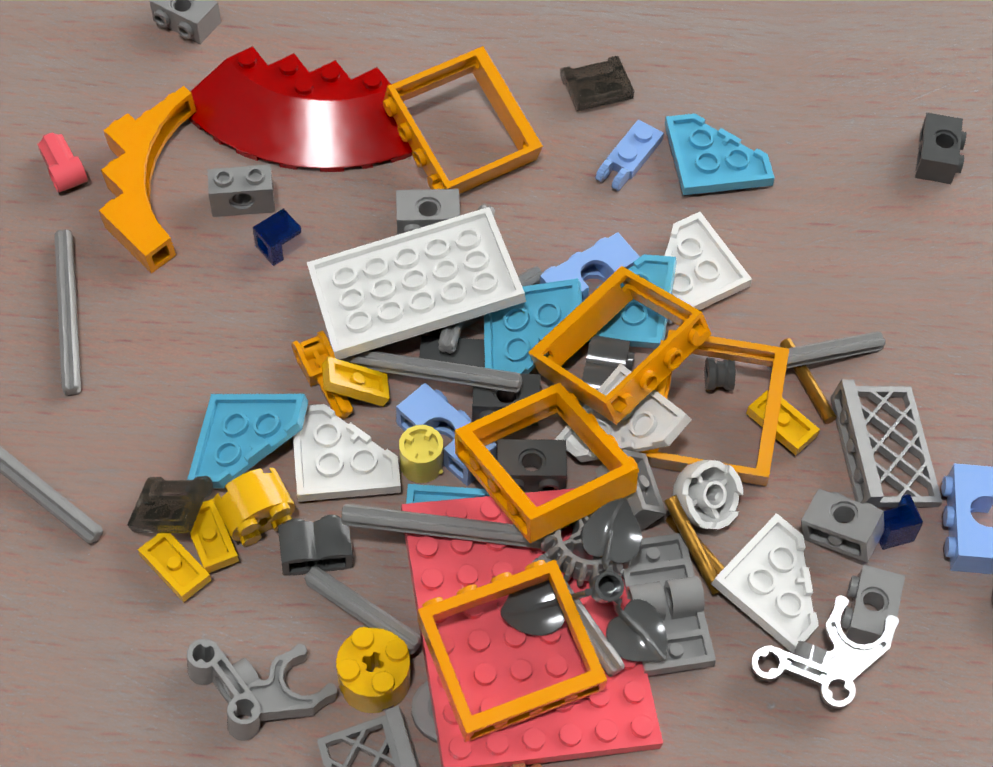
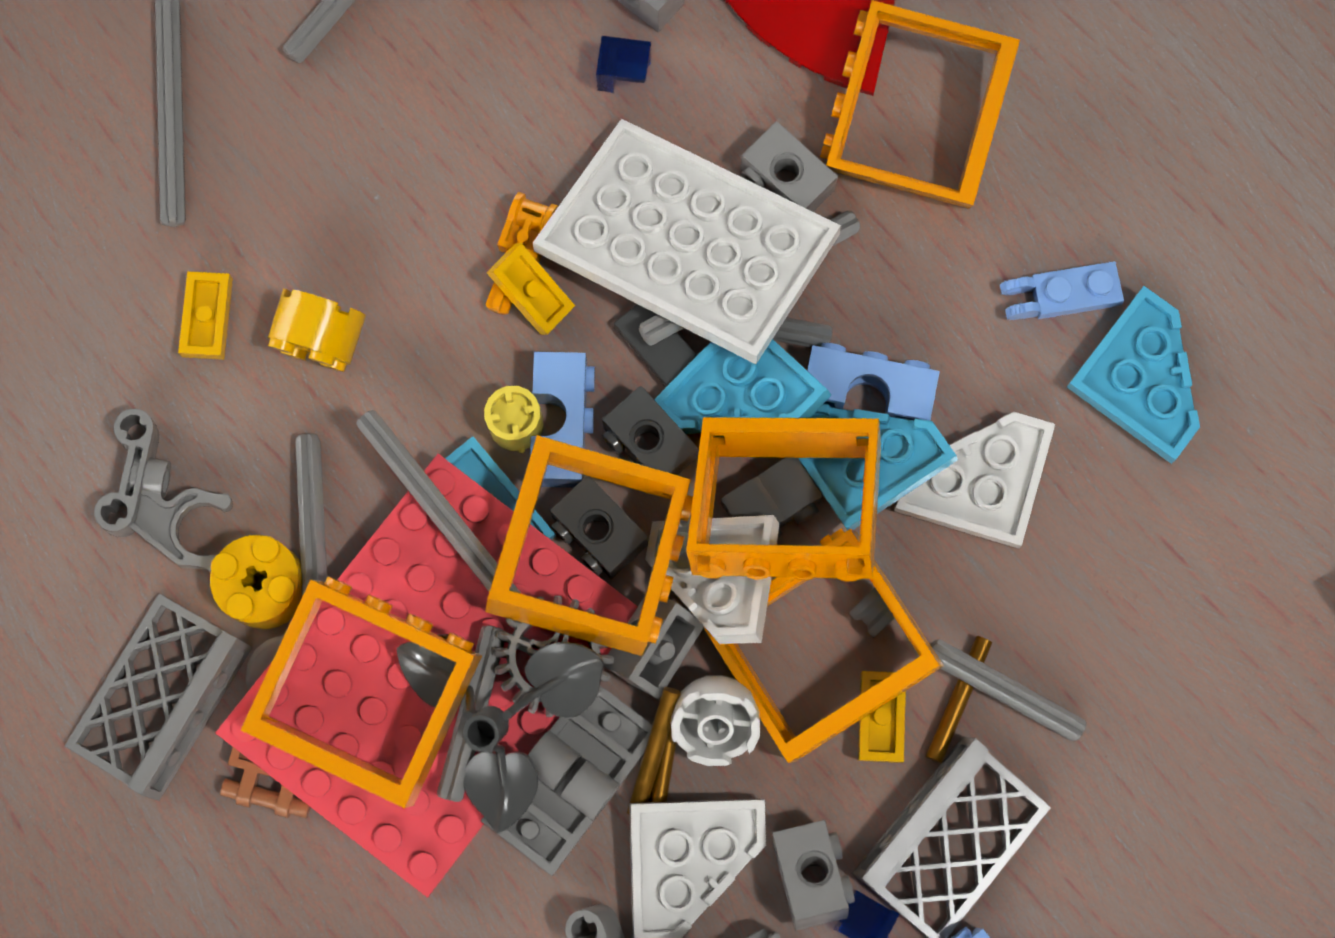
camera: 50 degrees right, 20 degrees up
(169, 513) = (238, 260): clear smoke plate -> none
(212, 539) = (255, 316): yellow plate -> none
(243, 431) = (381, 245): medium azure plate -> none
(315, 544) = (331, 412): dark grey brick -> none
(340, 459) = (443, 347): white plate -> none
(438, 370) = (611, 357): light grey axle -> none
(605, 88) = (1117, 190): clear smoke plate -> none

